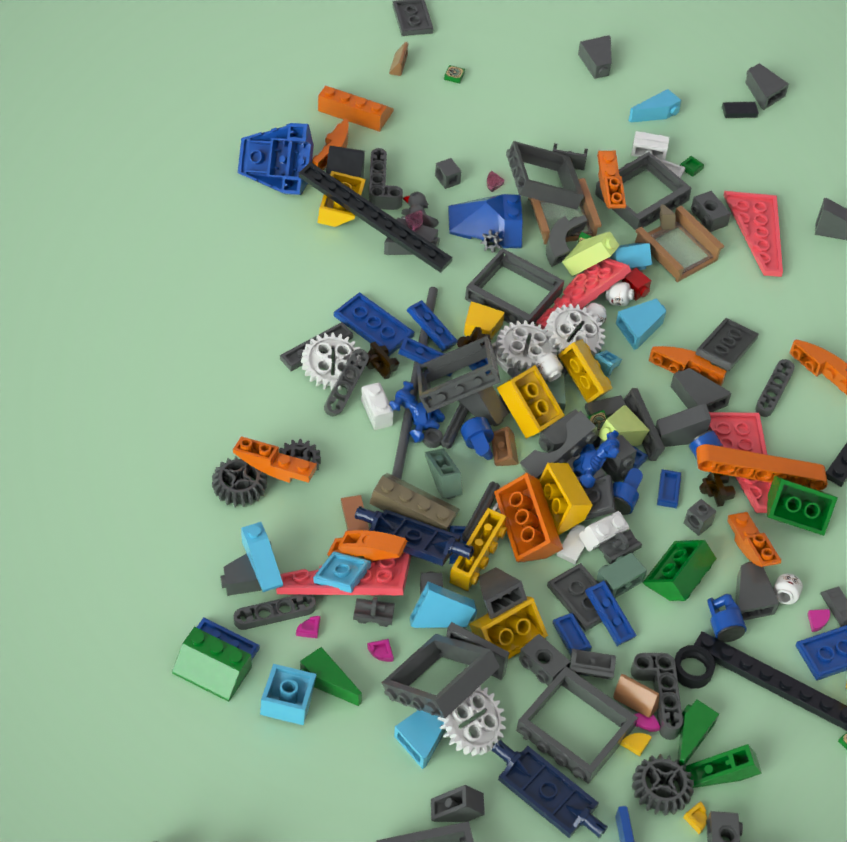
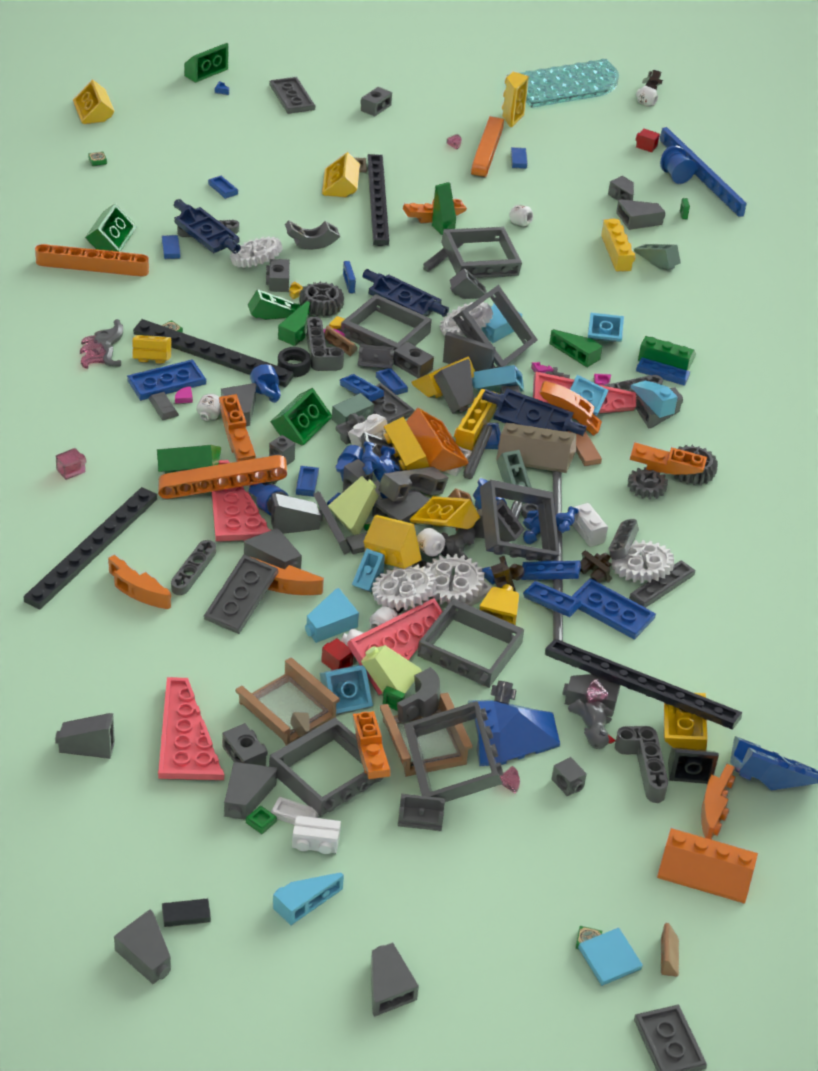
camera: 175 degrees right, 10 degrees down
(442, 60) = (610, 956): none -> medium azure tile
(706, 178) = (248, 788): none -> dark grey slope

